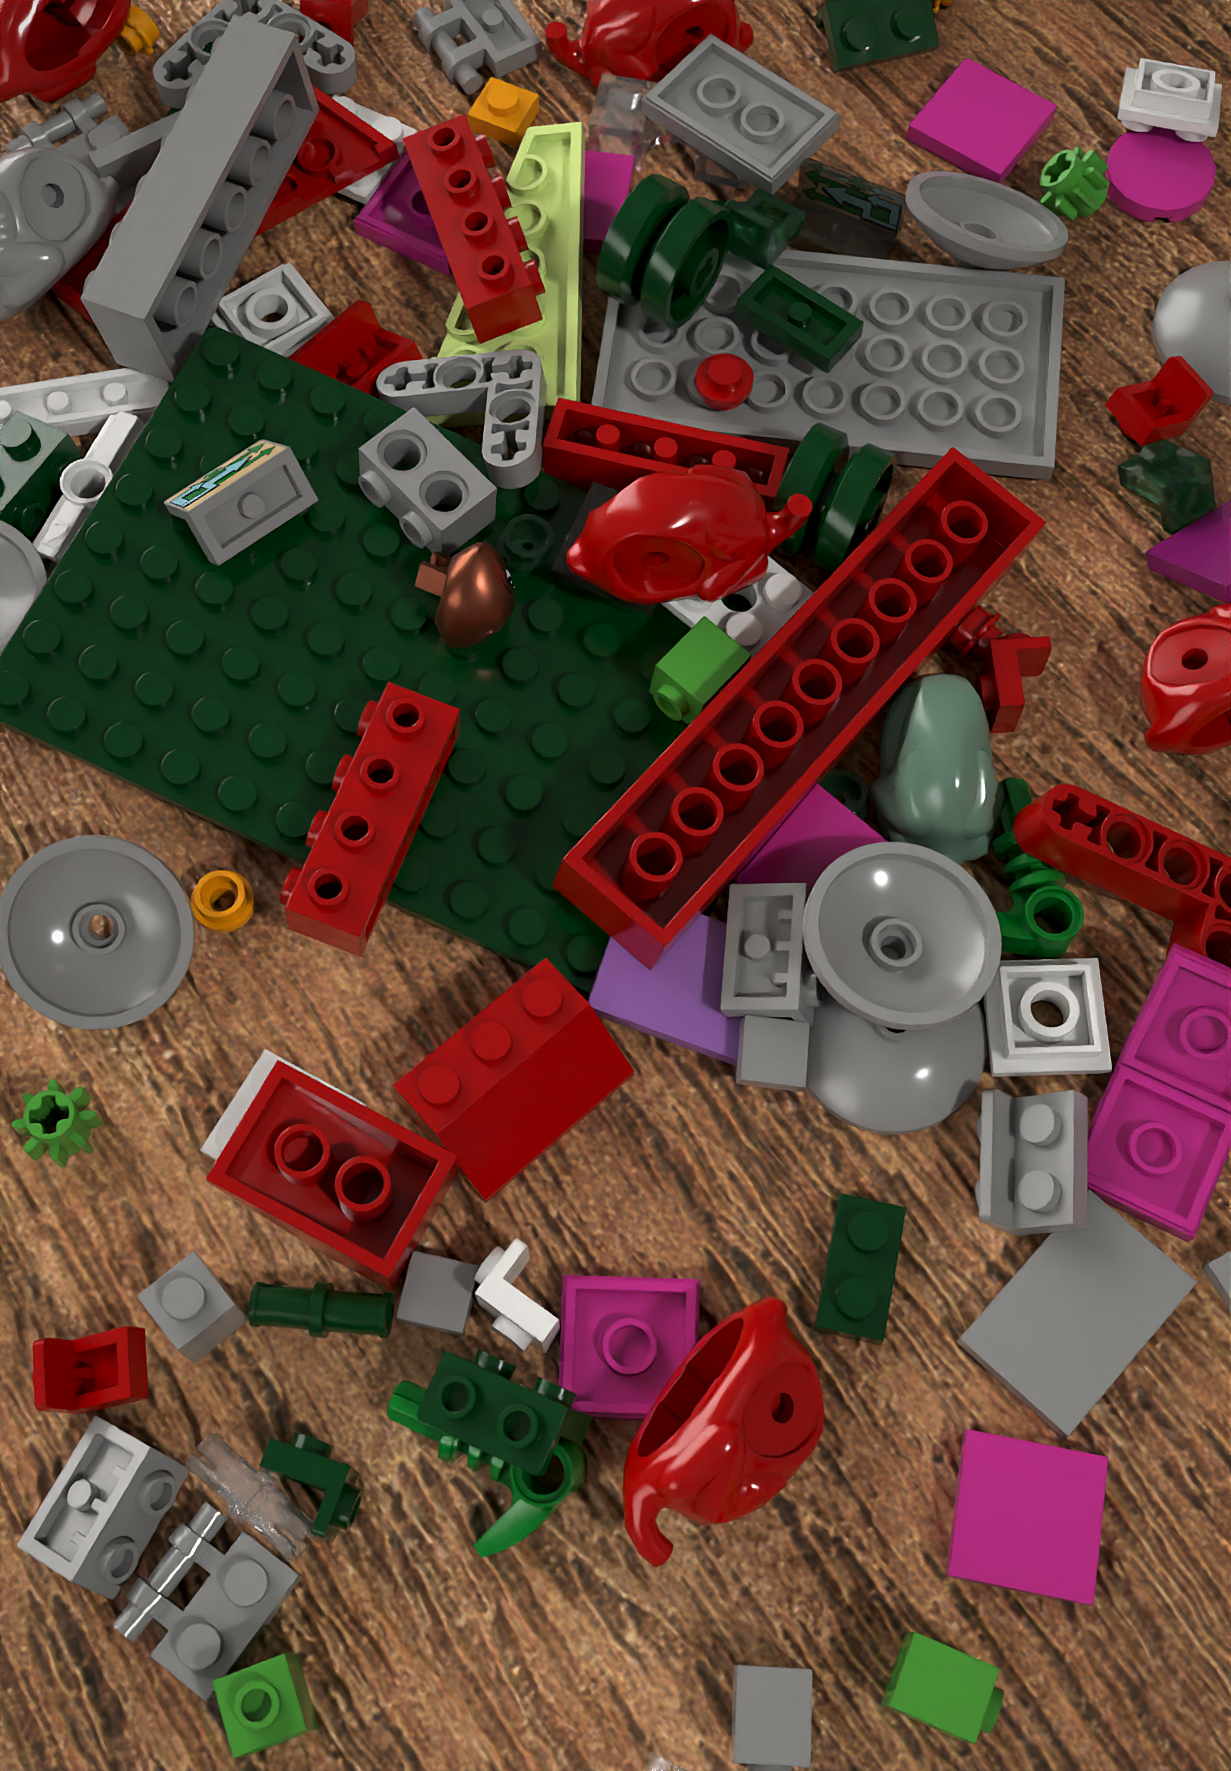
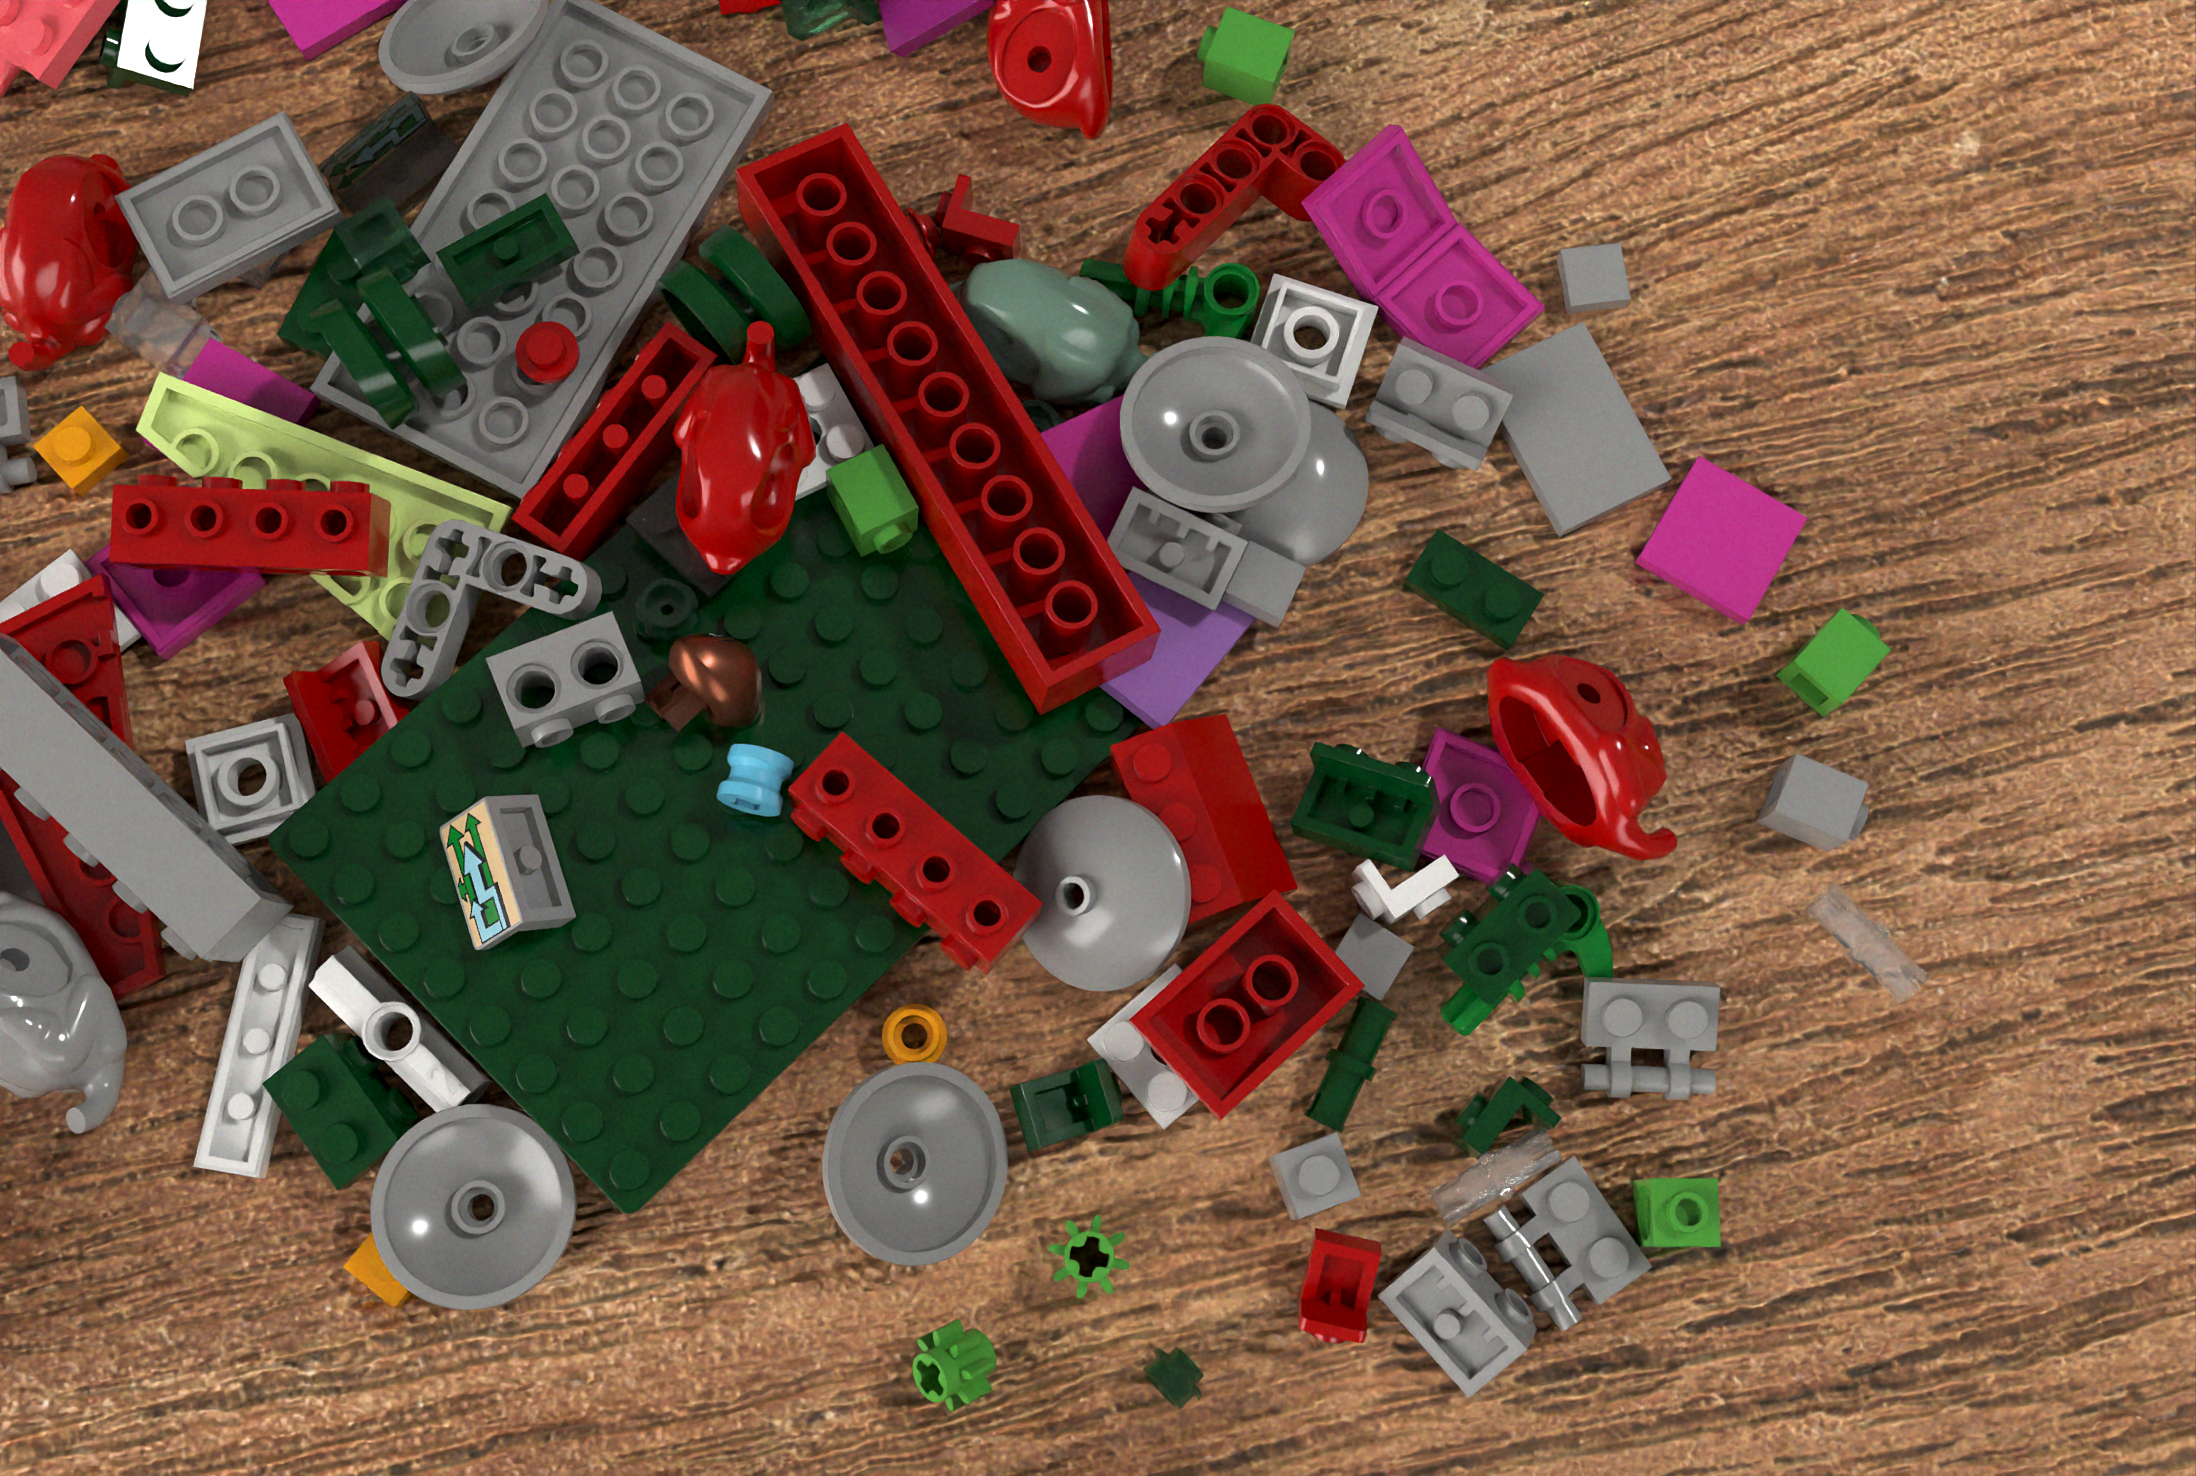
camera: 75 degrees left, 10 degrees up
(195, 1051) = (1067, 1104): none -> dark green bracket
(394, 661) = (755, 780): none -> medium azure wheel
(405, 1007) = (1131, 887): none -> light grey dish
(471, 1609) = (1649, 1016): none -> light grey plate
(582, 1231) = (1367, 806): none -> dark green bracket

